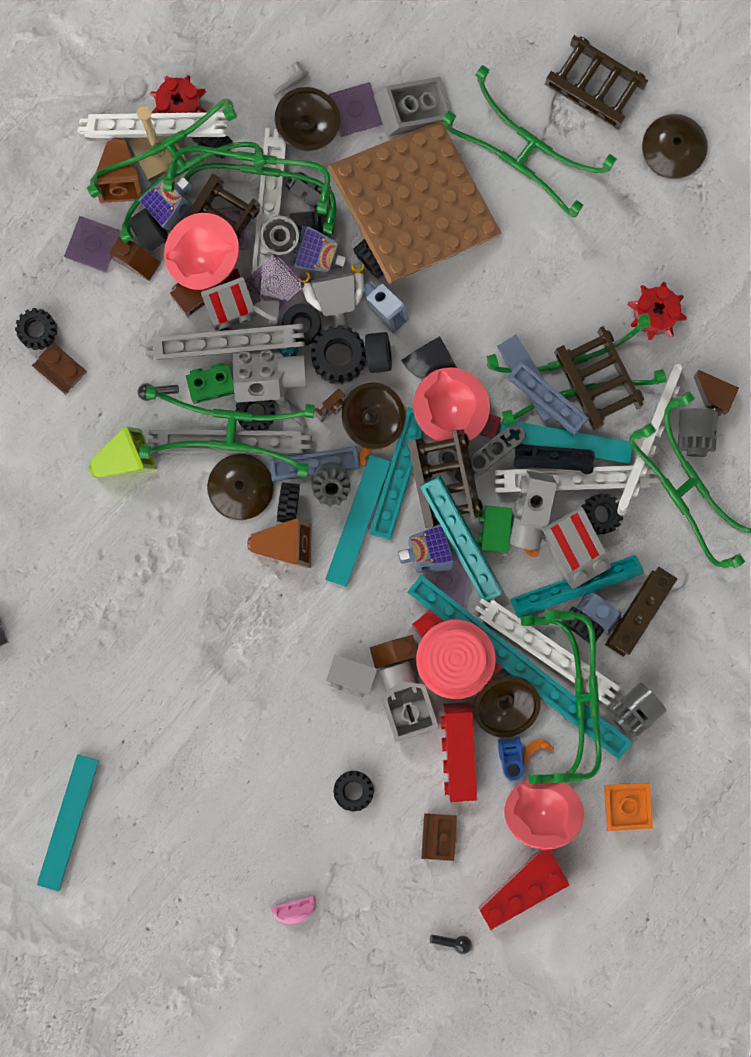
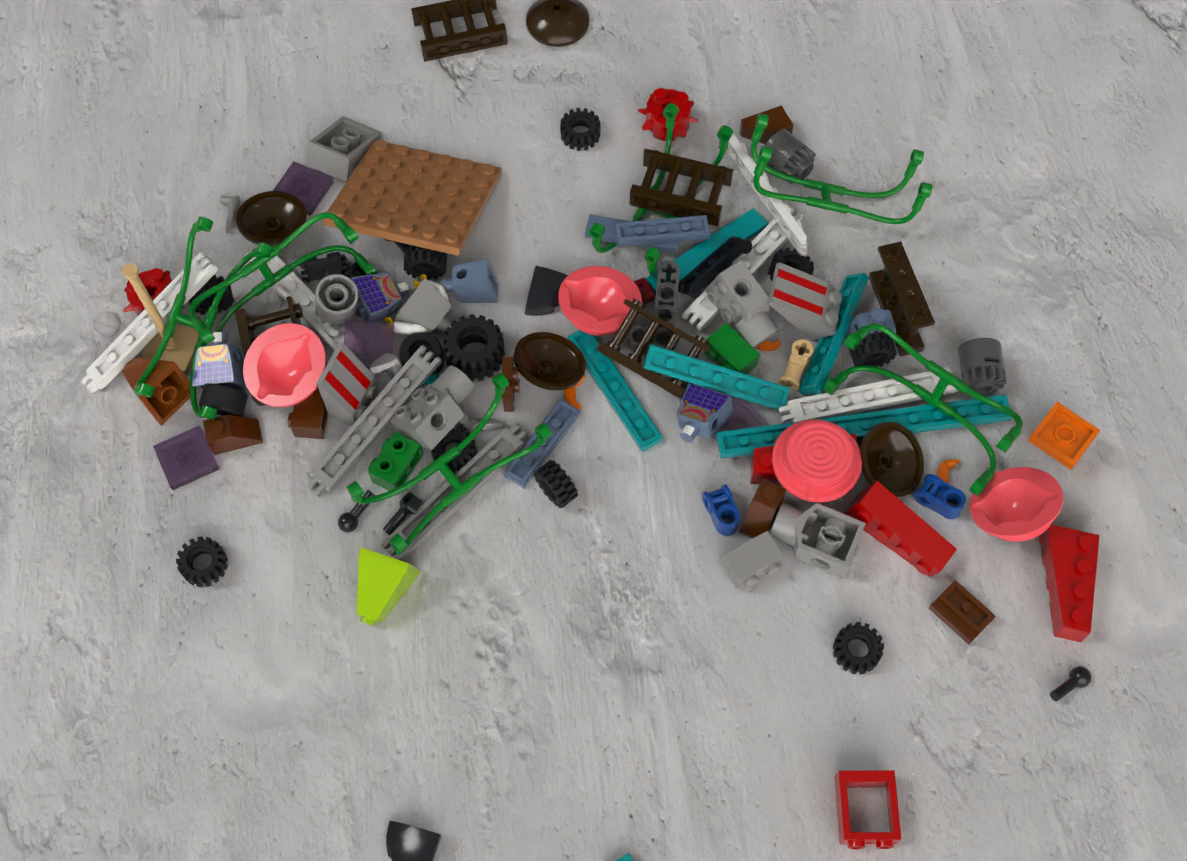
camera: 45 degrees left, 20 degrees down
(59, 368) = (253, 574): reddish brown plate -> none
(189, 421) = (408, 505): none -> black bar
(244, 502) = (506, 530): dark brown dish -> none
(269, 863) = (867, 779): none -> red window
(284, 542) = (584, 519): dark orange slope -> none
(295, 911) = (929, 796): bright pink plate -> none
(326, 474) = (573, 437): dark grey gear -> none
(358, 520) = (623, 450): teal tile -> none
(373, 623) = (720, 506): none -> blue piece
(378, 352) = (505, 315): black tyre -> none
(525, 582) = (796, 364): none -> tan connector
(533, 142) = (458, 98): green bar -> none
(593, 246) = (583, 139): none -> black tyre

